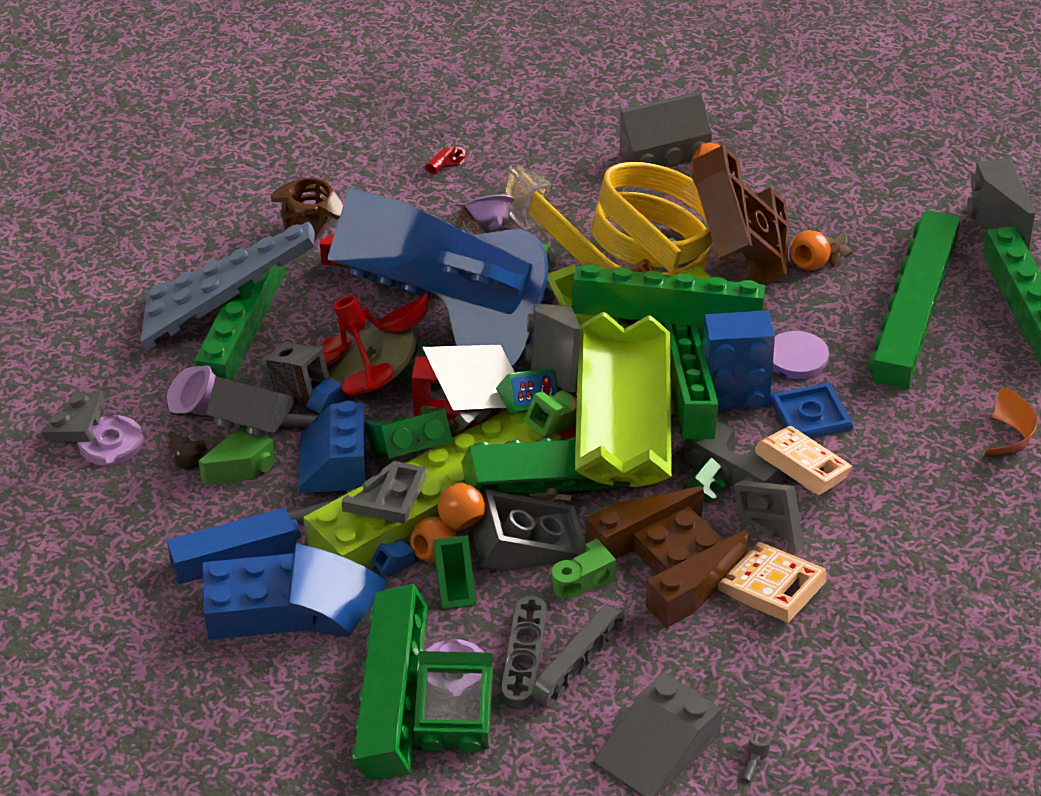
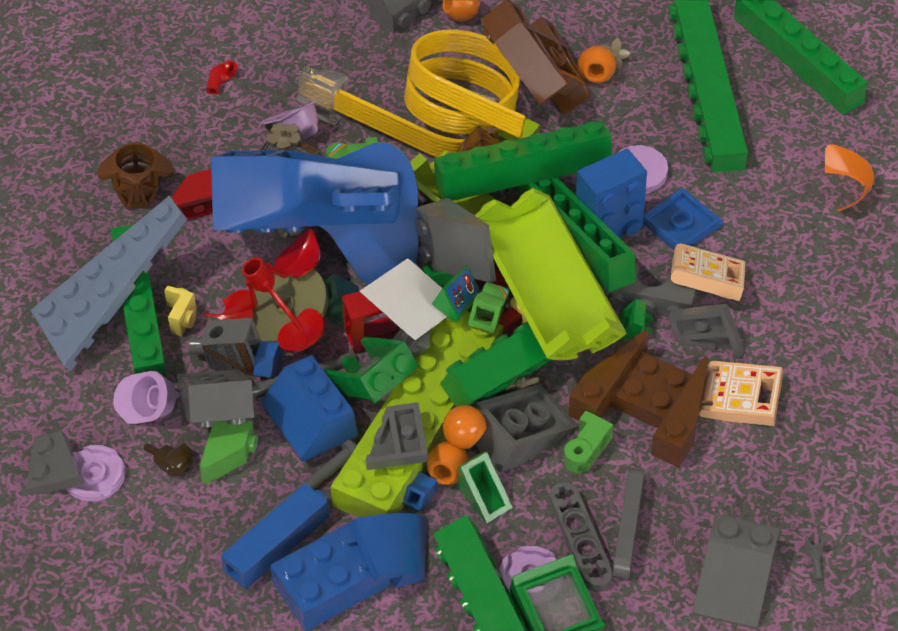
camera: 25 degrees left, 10 degrees up
(277, 332) = (183, 311): none -> light yellow bracket
(462, 218) = (283, 136): none -> dark tan plant

